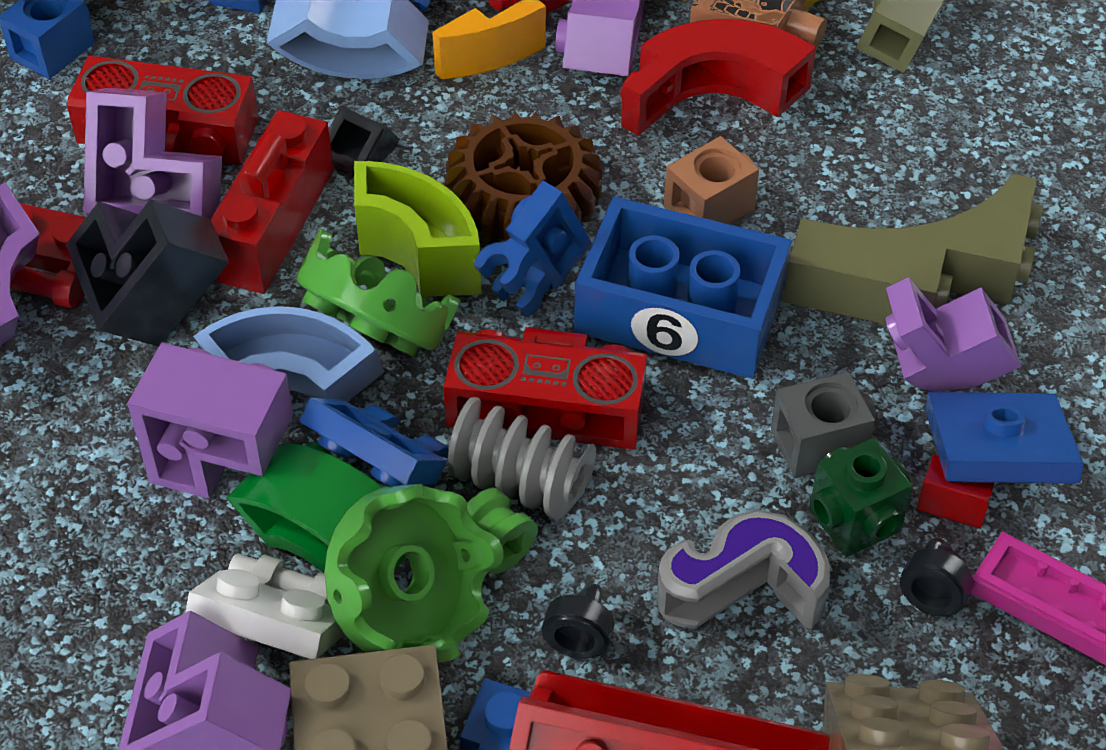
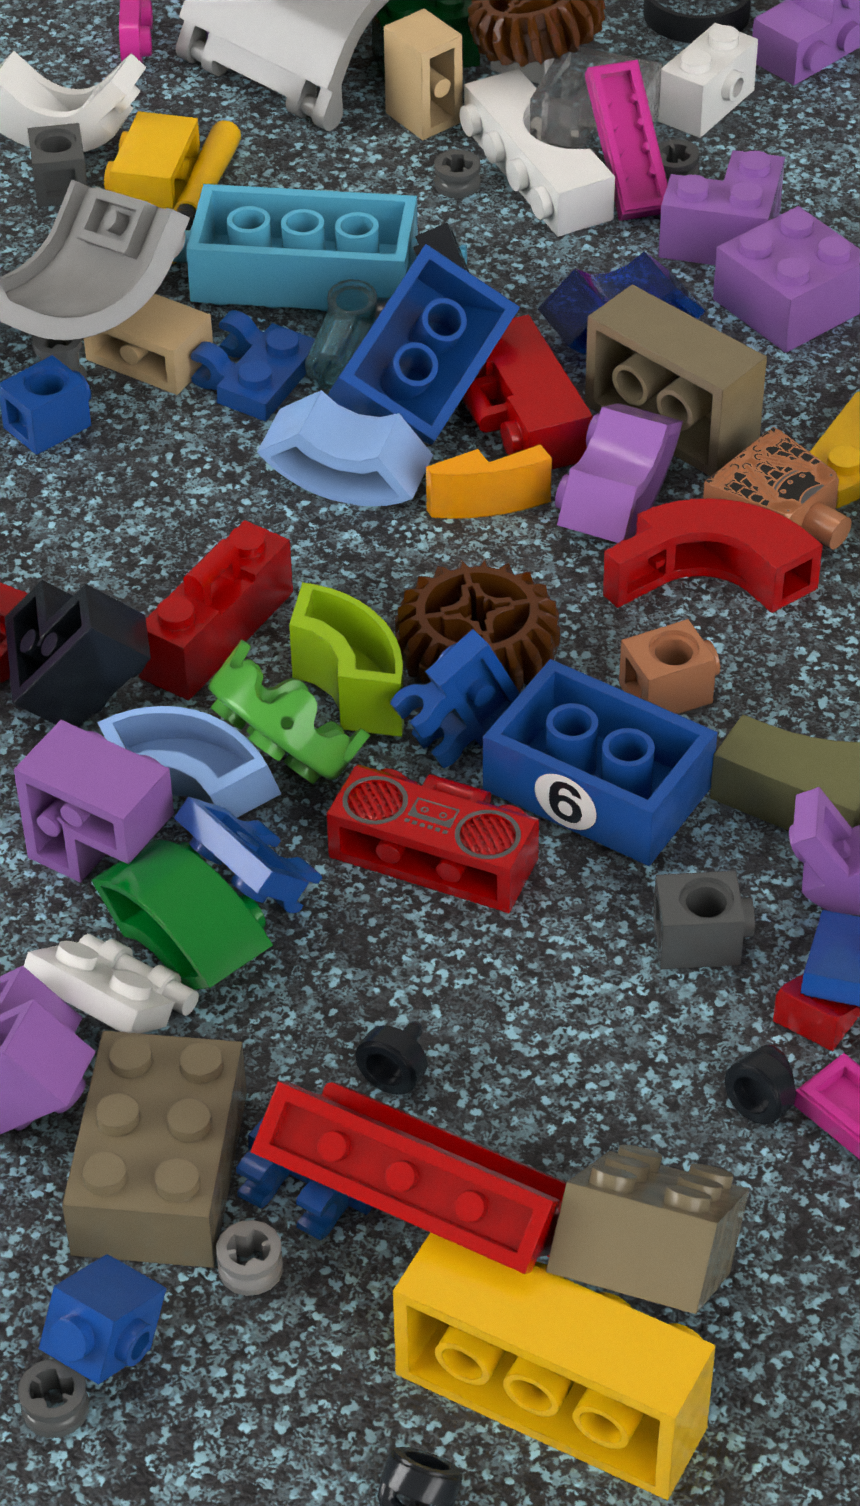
camera: 15 degrees right, 5 degrees down
(129, 159) = (86, 543): medium lavender brick -> none
(203, 108) = (136, 503): red piece -> none
(358, 139) = (325, 563): black slope -> none
(447, 564) = (281, 964): bright green plate -> none
(514, 531) = (339, 958): bright green wheel -> none
(518, 463) = (382, 898): light grey piece -> none
(742, 557) = (567, 1031): light grey animal -> none
(860, 496) = (710, 993): dark green brick -> none

